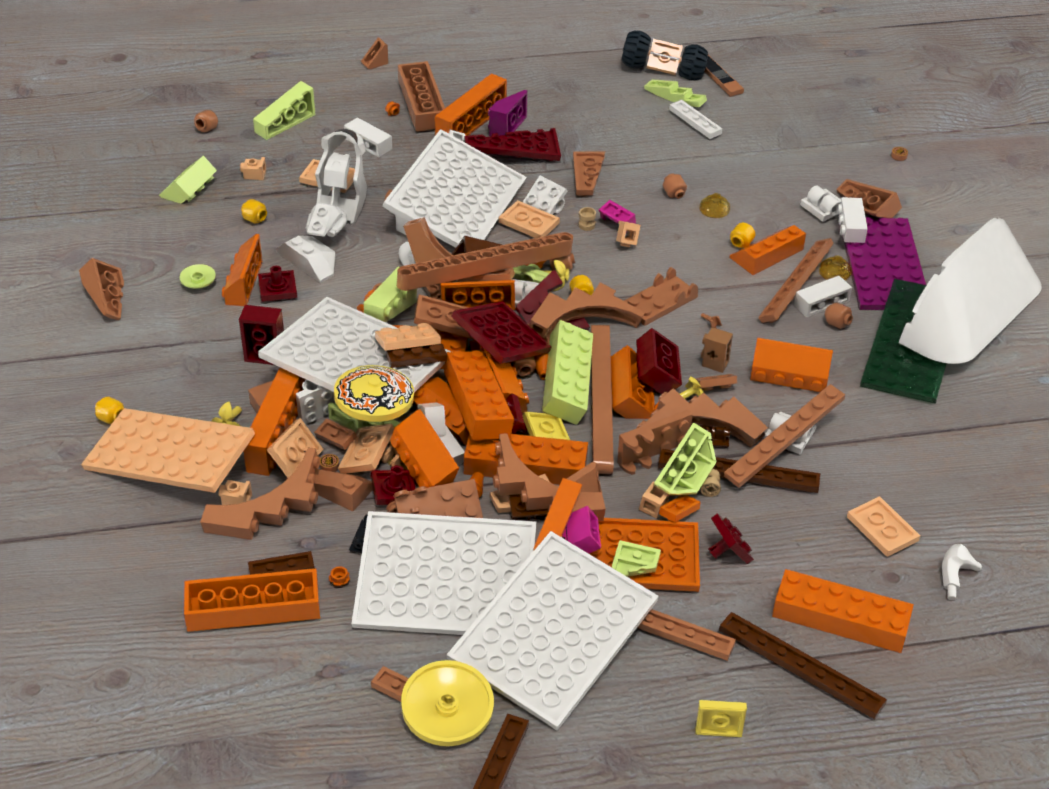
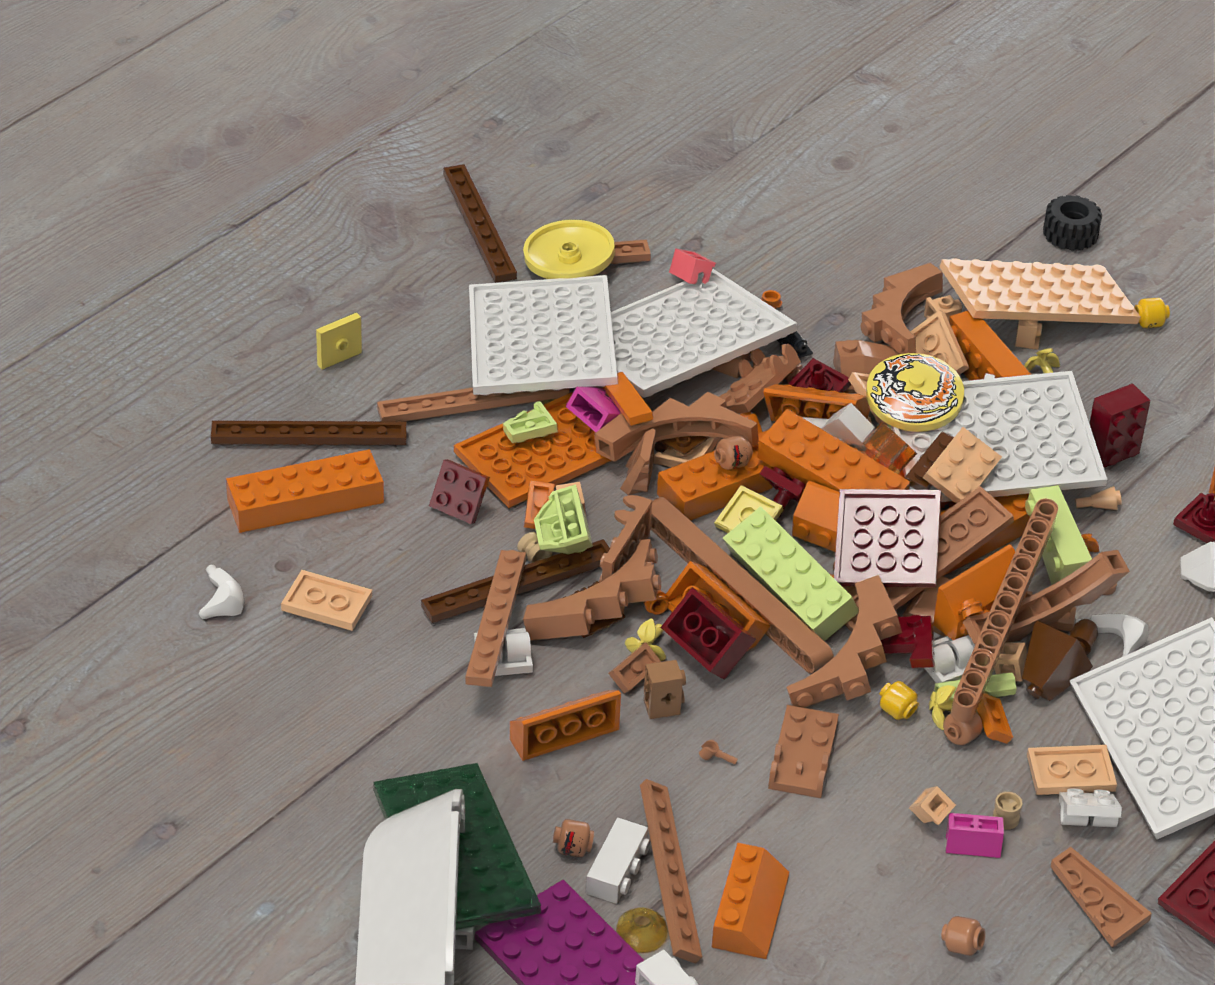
camera: 140 degrees right, 0 degrees up
(52, 501) = (1072, 222): none -> black tyre
(251, 600) = (808, 238): orange brick -> none
(282, 563) = (825, 281): reddish brown plate -> none
(371, 625) = (689, 264): none -> coral hinge
(434, 375) = (889, 448): none -> clear orange brick
(503, 270) = (970, 608): none -> orange plate
(530, 436) = (733, 452): none -> nougat head
(715, 206) = (885, 954): clear yellow piece -> none
(742, 235) = (797, 898): yellow head -> none

